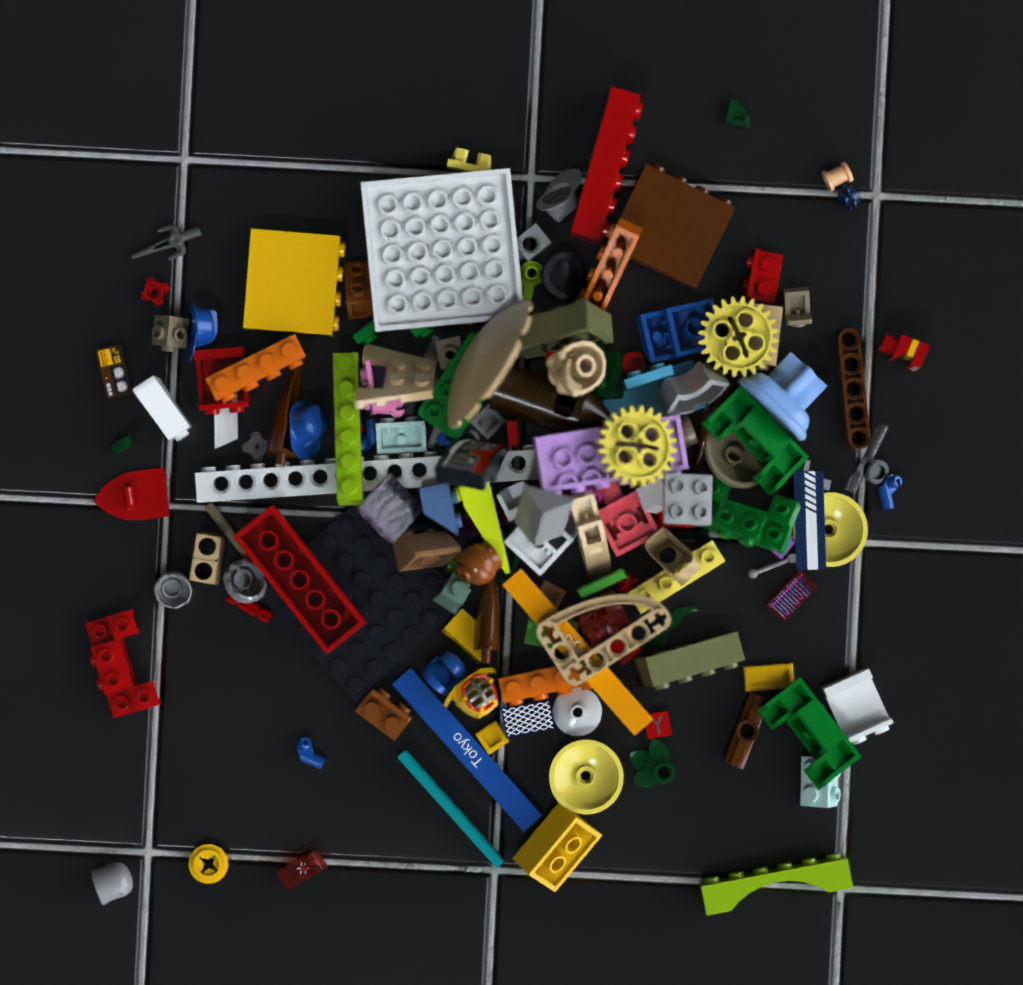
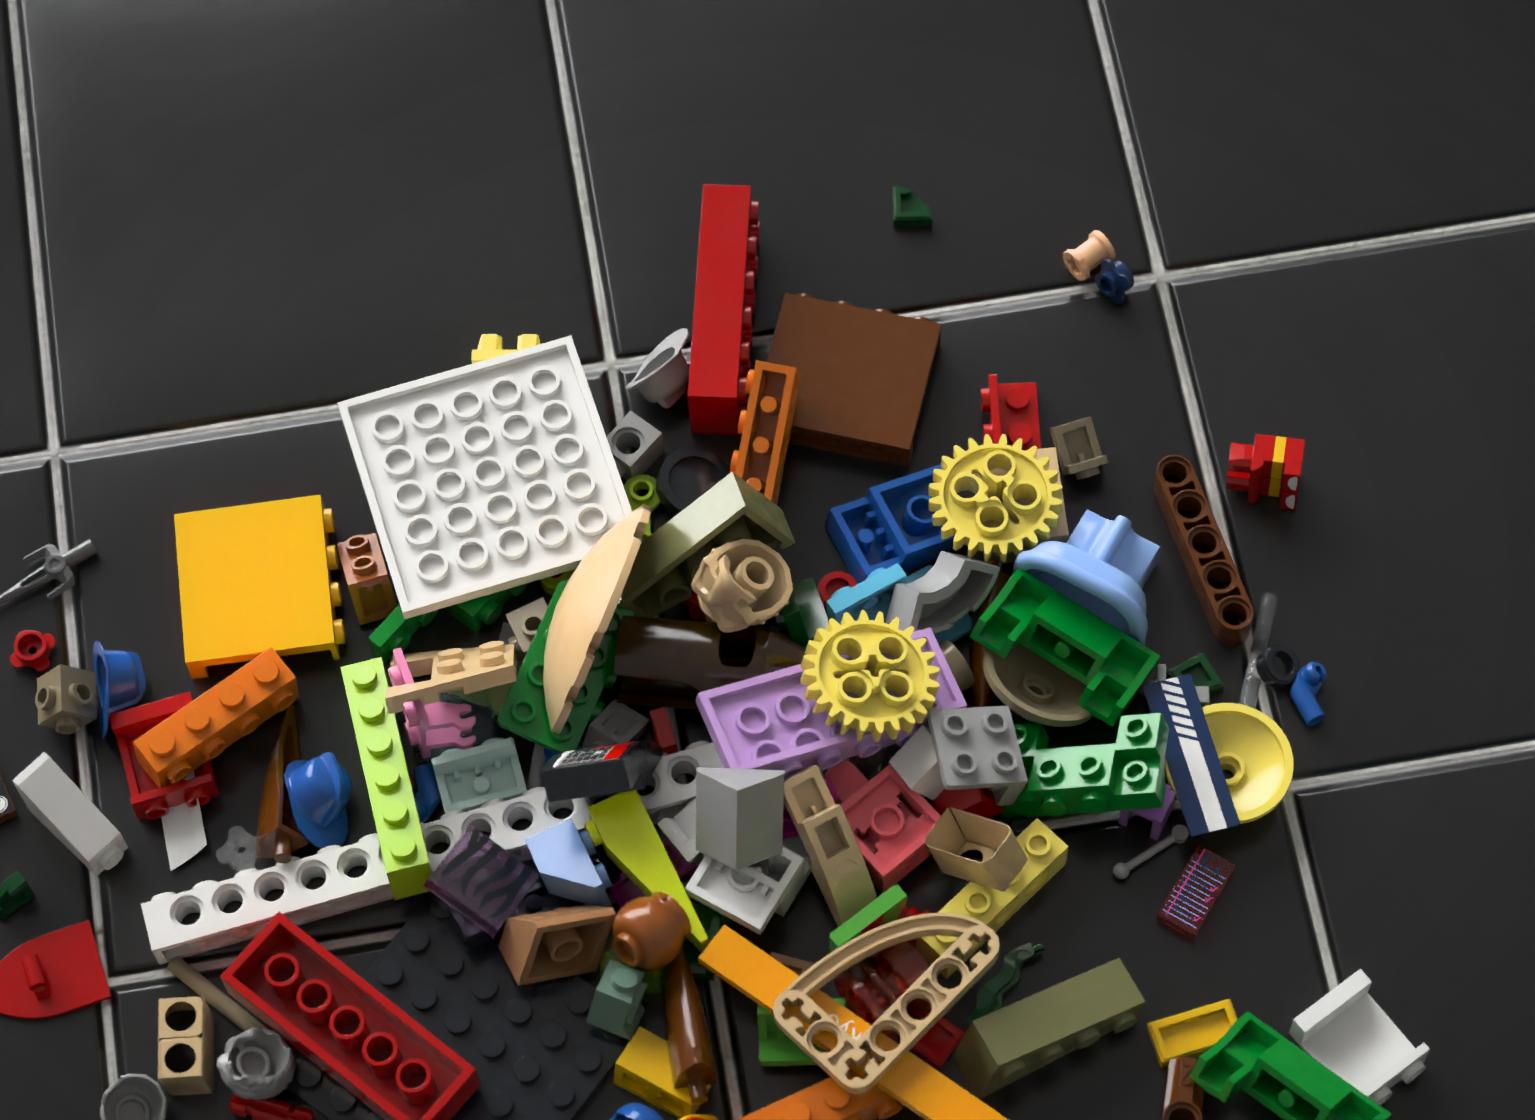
camera: 15 degrees left, 25 degrees down
(827, 464) = (1201, 673): none -> dark green tile

